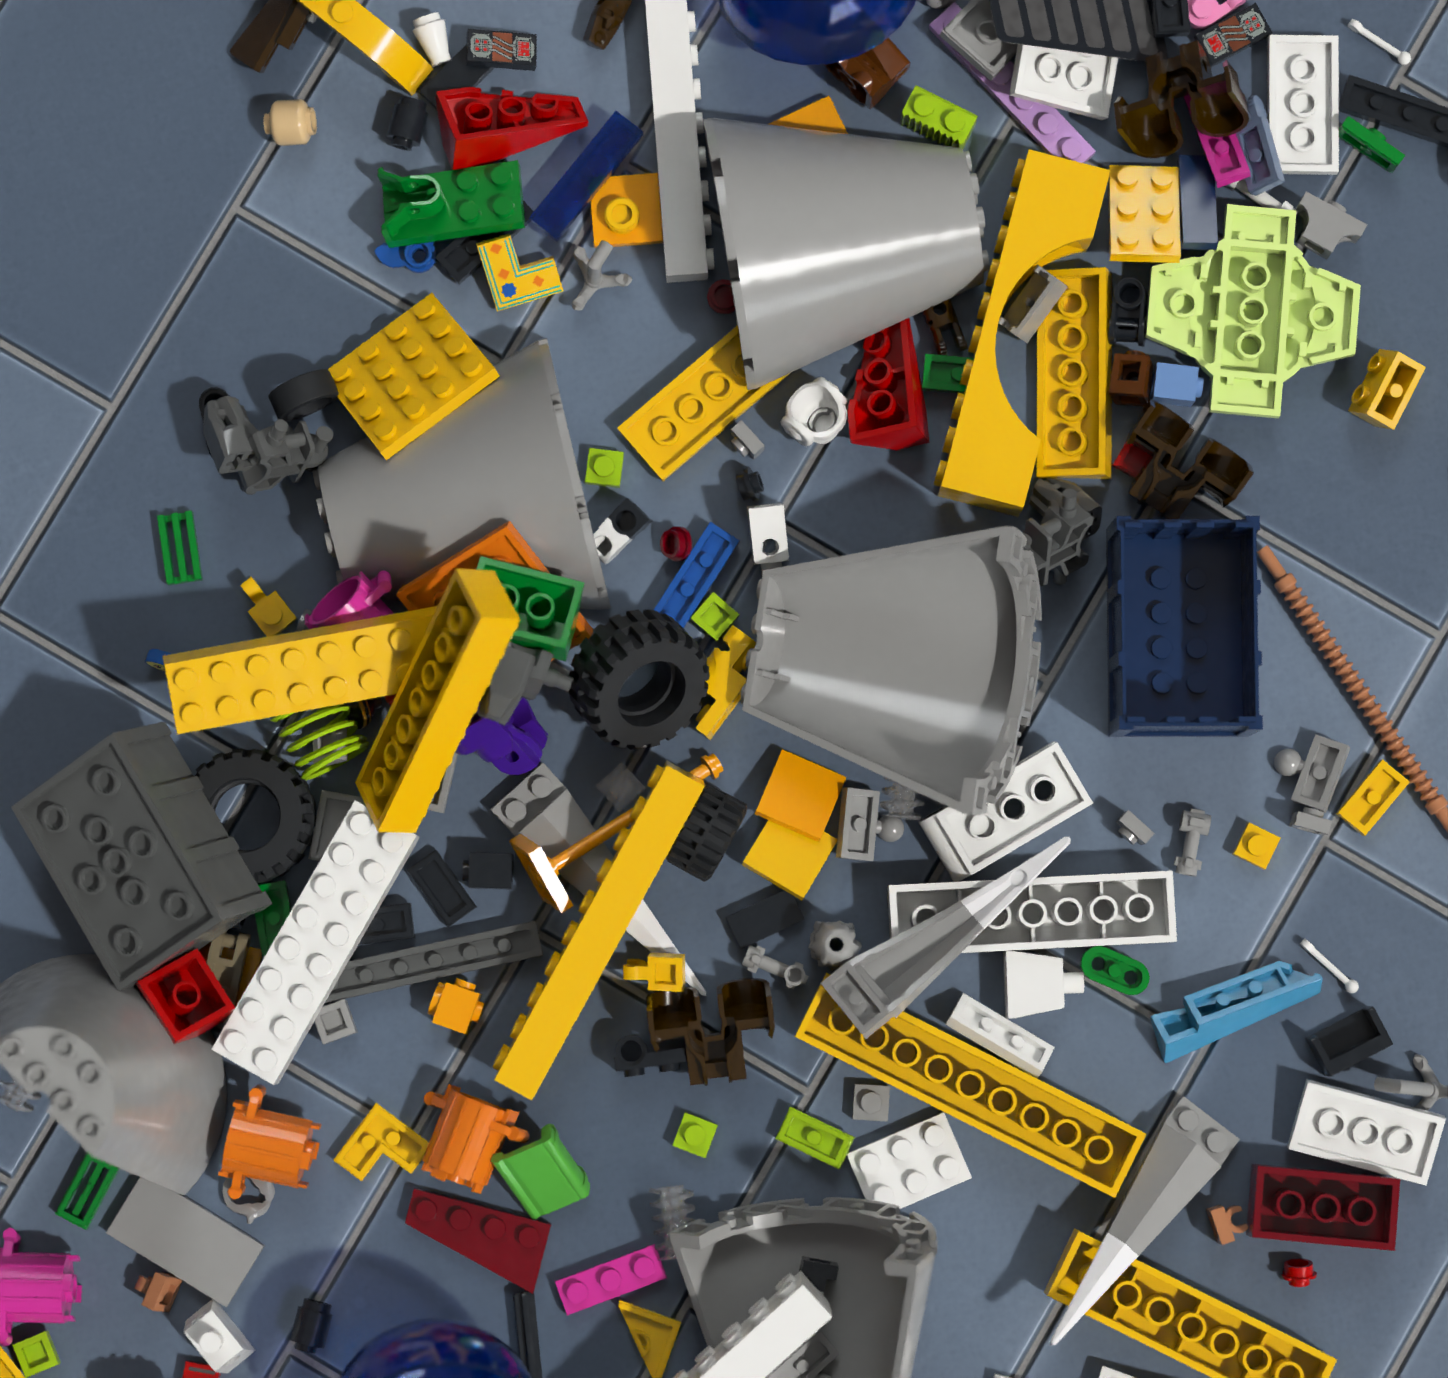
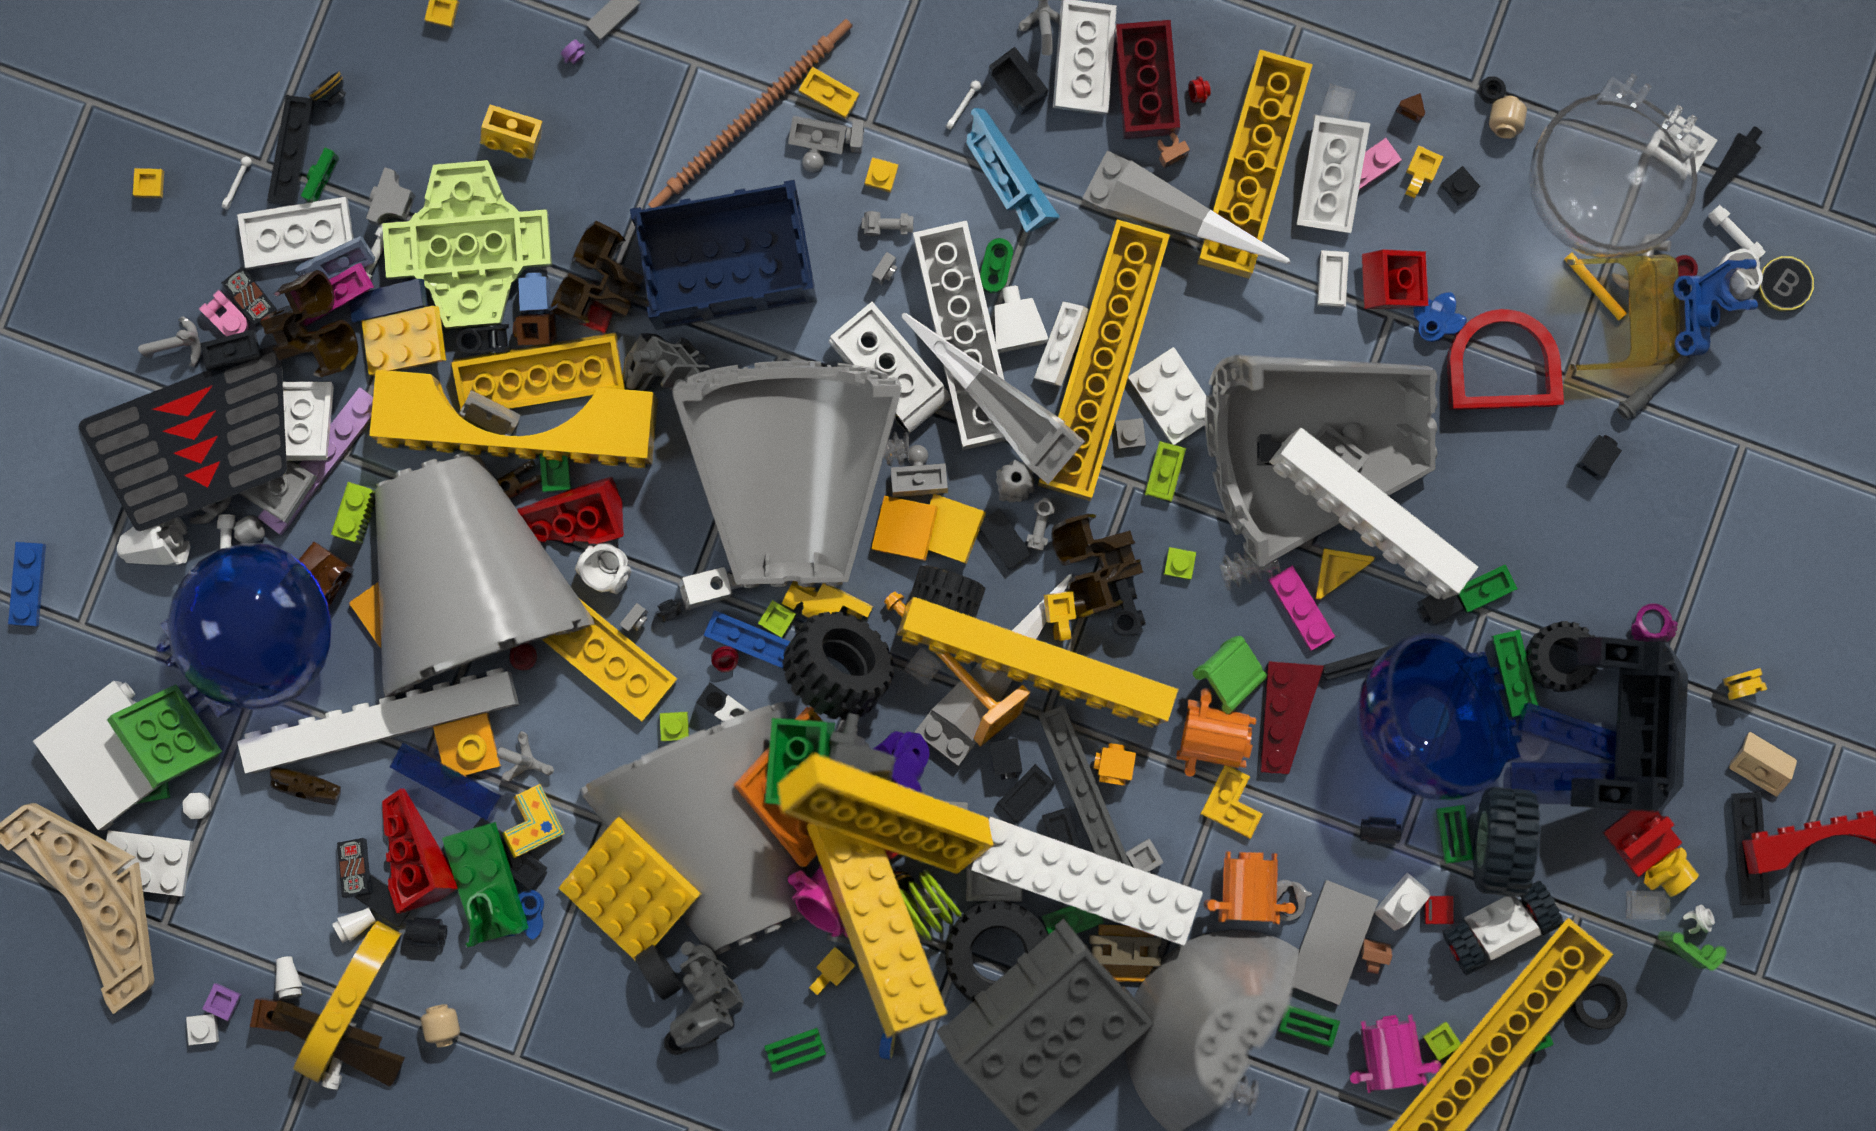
camera: 95 degrees left, 0 degrees up
(186, 997) = (1147, 971): red slope -> none

